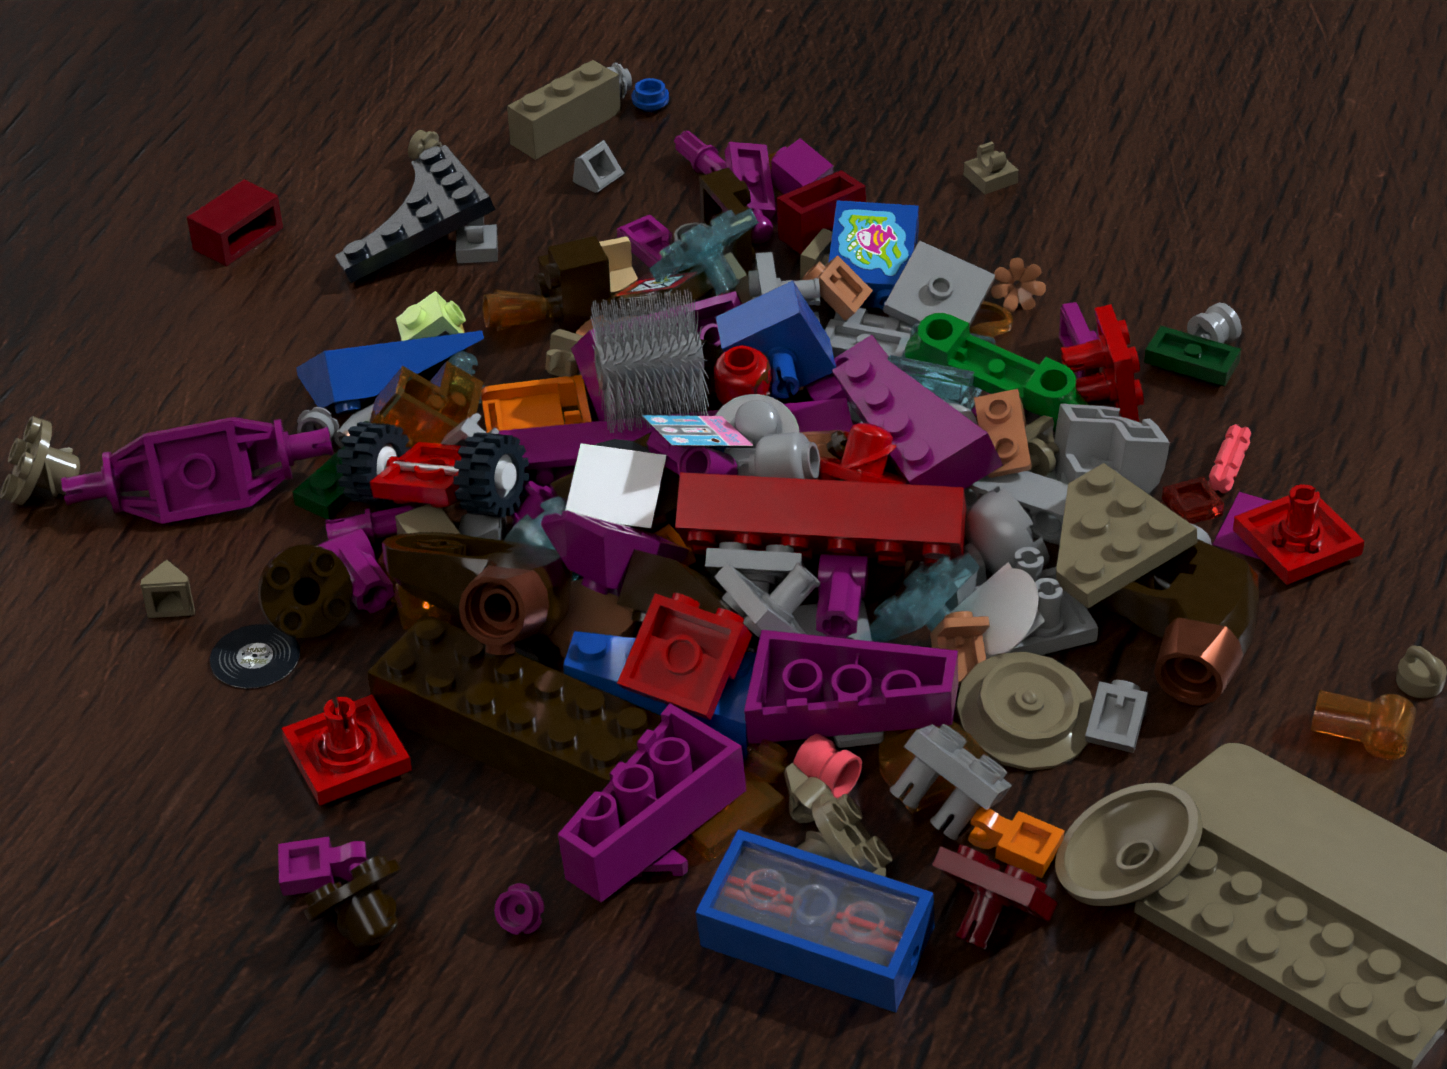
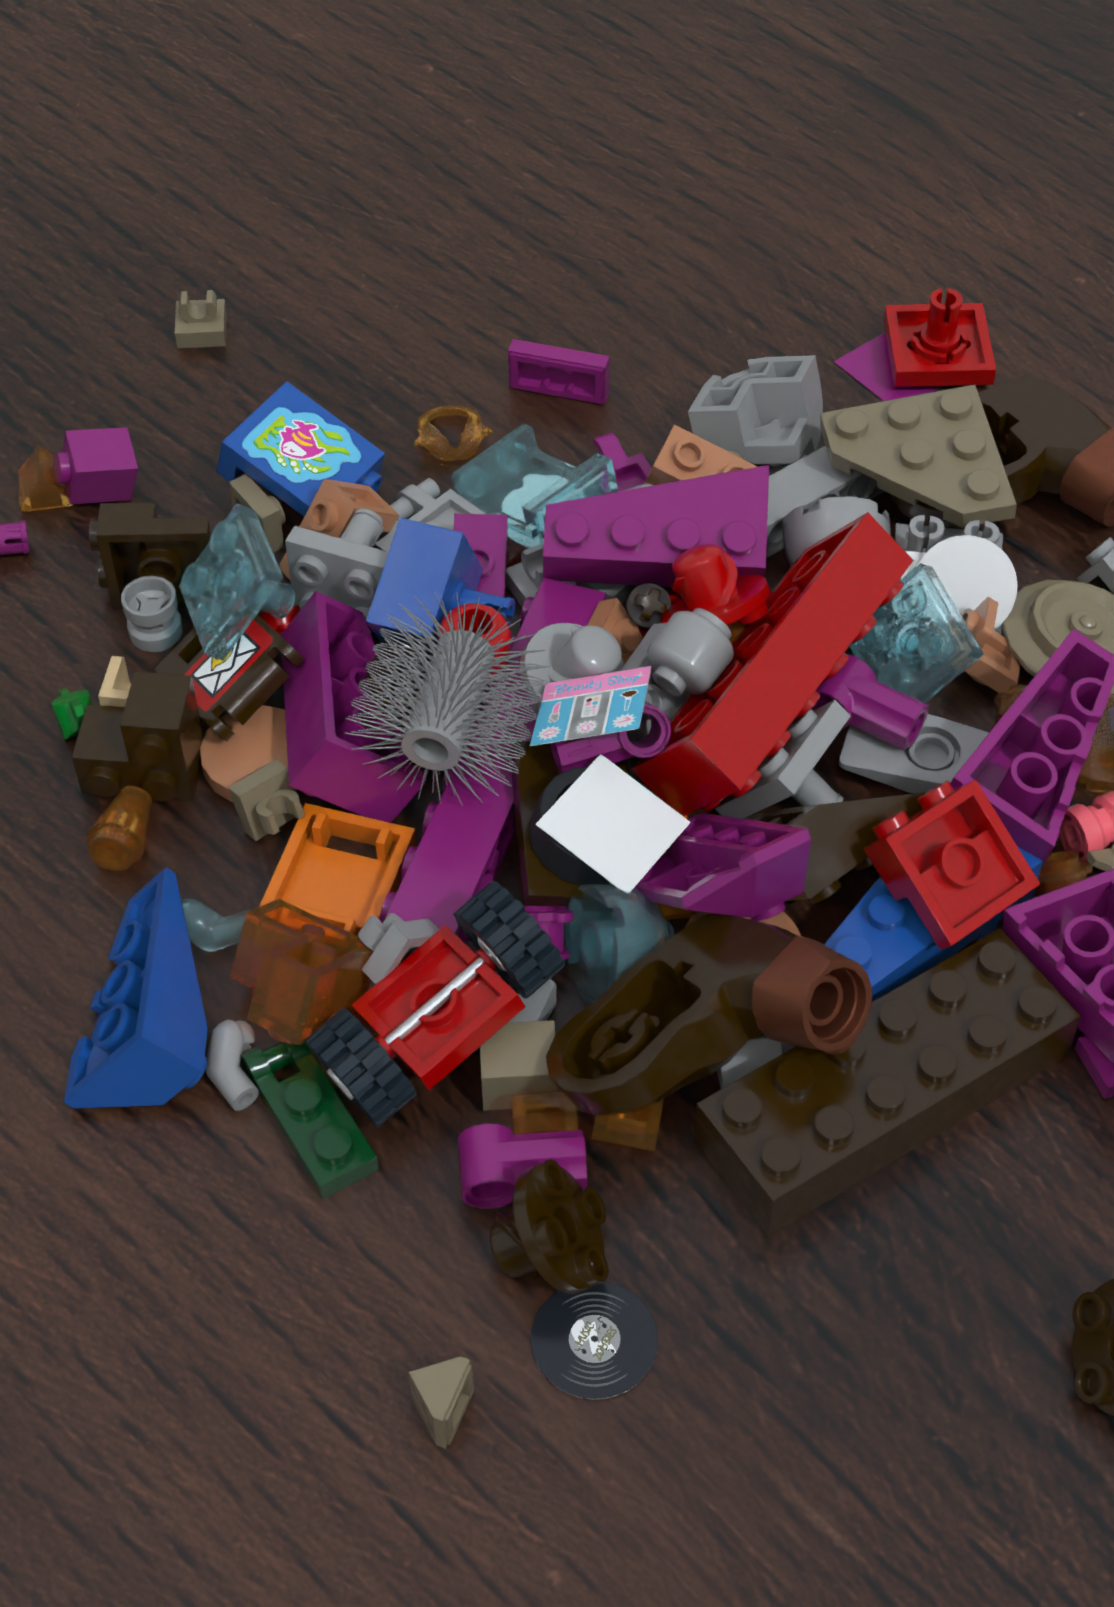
camera: 65 degrees left, 10 degrees up
(37, 464) = (73, 1493): dark tan plate -> none
(197, 468) = (233, 1291): magenta plate -> none
(314, 863) = (1034, 1386): magenta plate -> none
(318, 415) = (208, 1118): light grey plate -> none
(346, 748) = (845, 1284): red plate -> none
(374, 524) = (443, 1124): magenta axle -> none
(430, 318) = (83, 923): yellowish green bracket -> none
(646, 238) = (82, 654): magenta tile -> none
(752, 166) = (55, 509): magenta plate -> none
(764, 609) = (889, 759): light grey plate -> none
(813, 207) = (188, 468): dark red brick -> none
(938, 284) = (416, 433): light grey plate -> none
(948, 342) = (540, 455): green plate -> none
(1023, 291) = (423, 376): nougat plant -> none
(1117, 363) = (645, 356): red plate -> none
(1192, 356) = (627, 302): dark green plate -> none
(1193, 500) = (840, 390): clear red tile -> none
(1216, 324) = (602, 268): light grey wheel -> none
(1229, 458) = (791, 341): coral axle -> none

